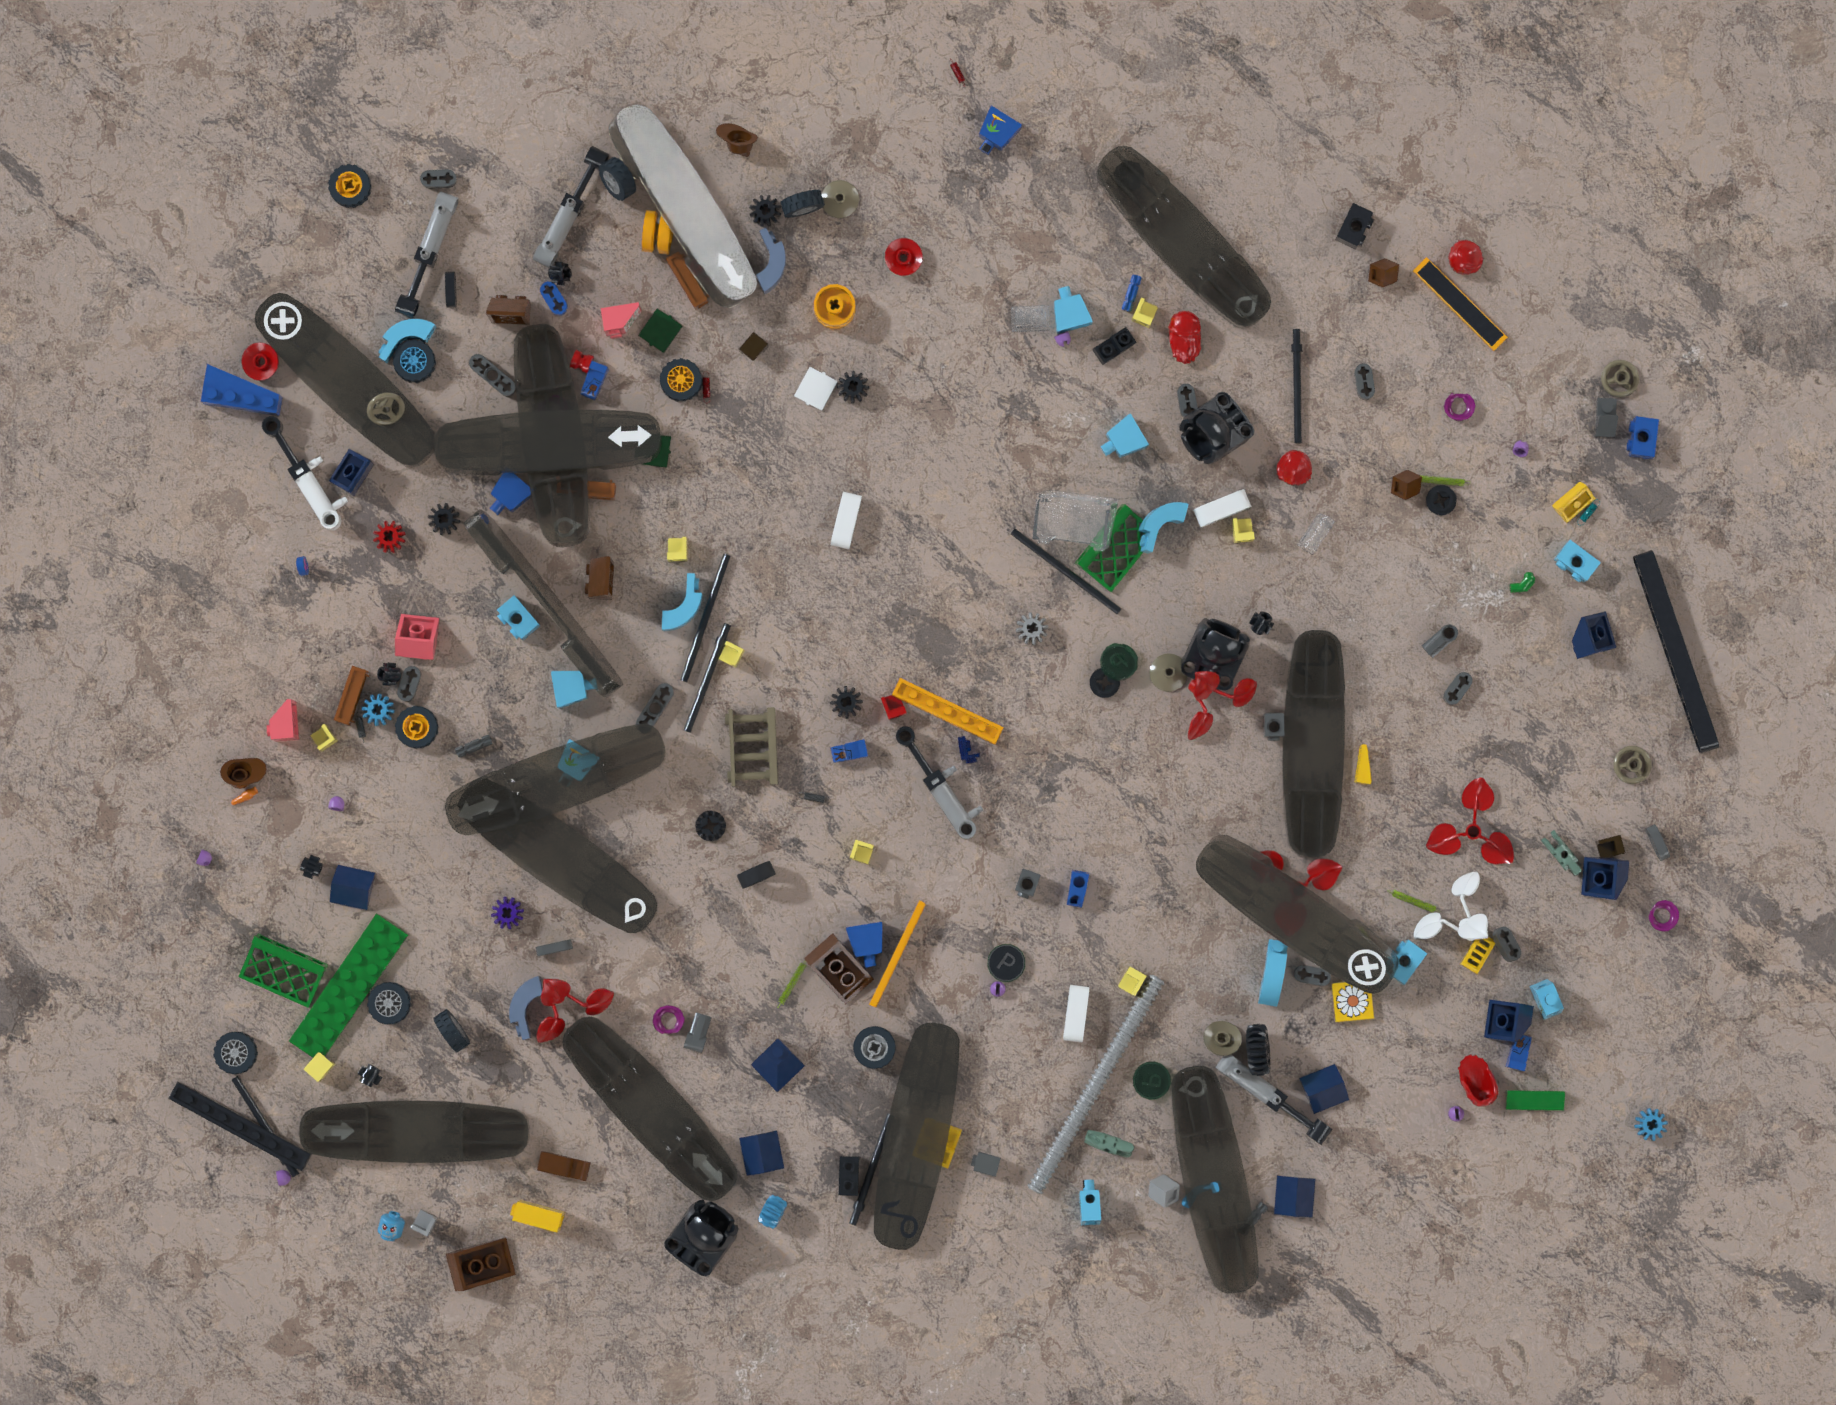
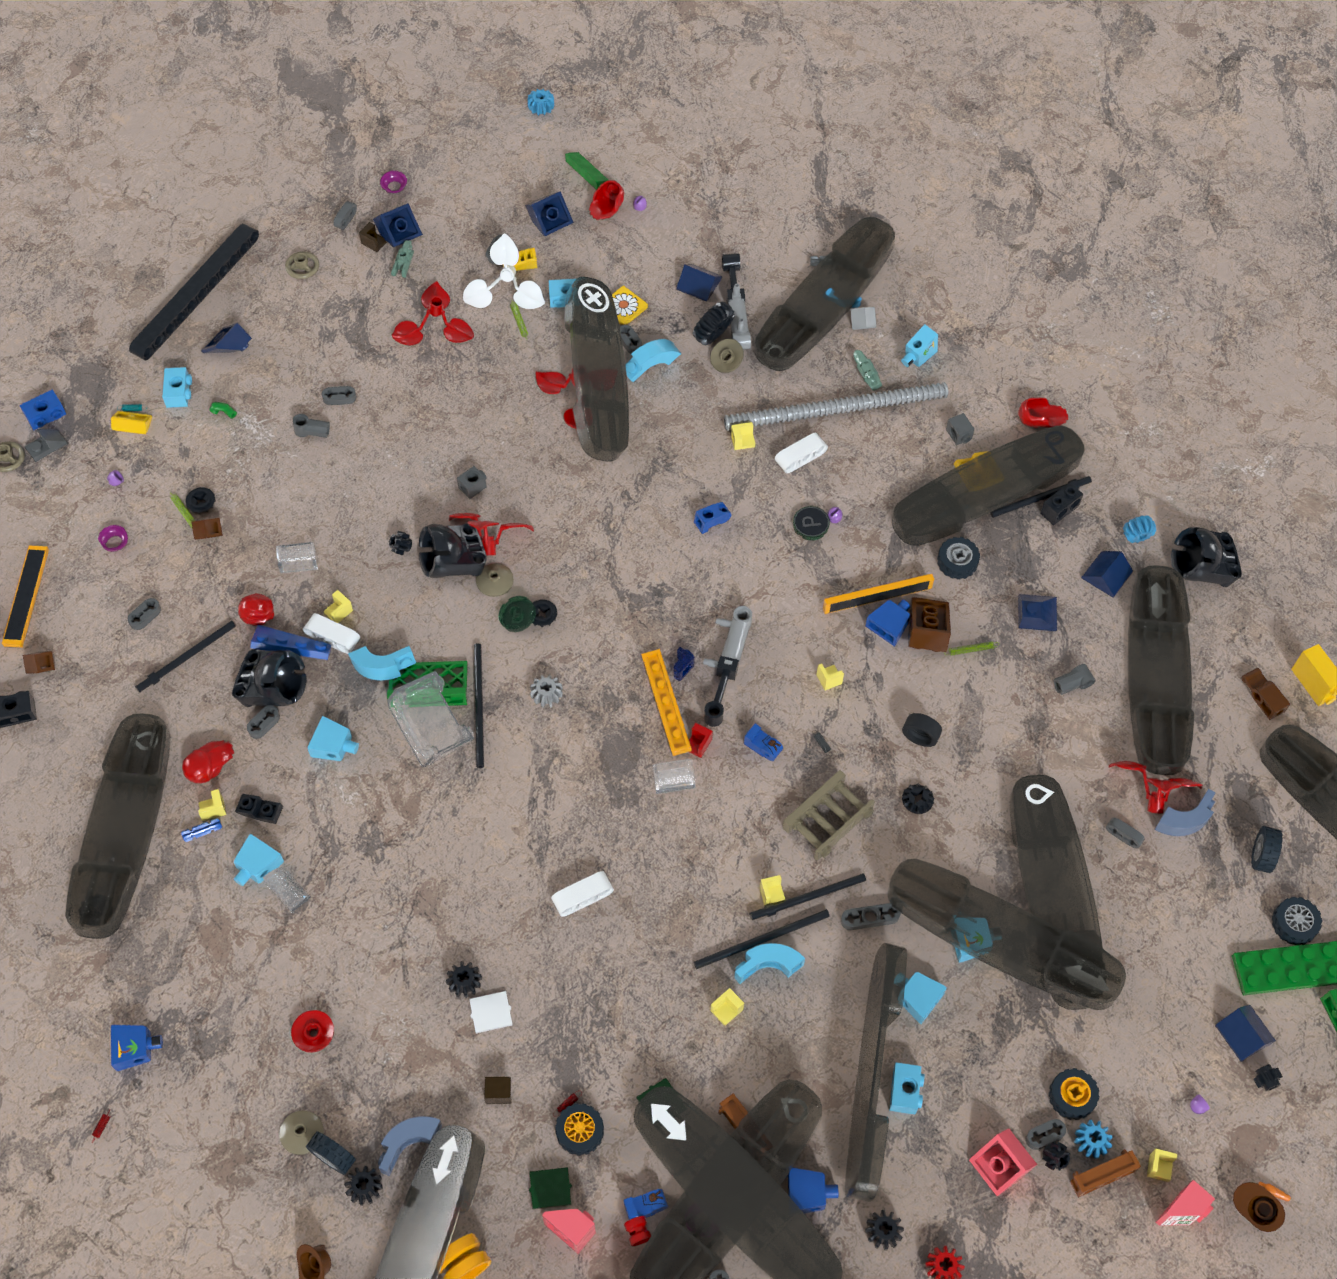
camera: 130 degrees left, 25 degrees down
(360, 727) = (1121, 1142): dark grey piece -> none
(473, 746) = (1041, 1034): dark grey axle -> none
(514, 913) = (1143, 895): dark purple gear -> none
(600, 578) = (810, 1042): reddish brown slope -> none
(668, 1009) = (1083, 700): magenta piece -> none
(687, 280) = (485, 1200): dark orange container -> none
(834, 295) = (401, 1038): light orange wheel -> none
(849, 708) = (721, 778): black gear -> none
(880, 662) = (673, 776): none -> clear brick
(941, 1244) = (1039, 413): none -> red hair
(1026, 874) = (738, 556): dark grey brick -> none
(1065, 336) = (285, 850): medium lavender hinge -> none
(1151, 1080) = (798, 379): clear green tile -> none
(1242, 466) = (273, 639): none -> blue wing
(1294, 1196) = (788, 249): dark blue slope -> none
(1313, 743) = (477, 441): clear smoke piece -> none
(1363, 773) = (451, 408): yellow slope -> none
(1519, 1053) = (570, 192): blue leg -> none
(1547, 999) = (512, 201): medium azure torso -> none

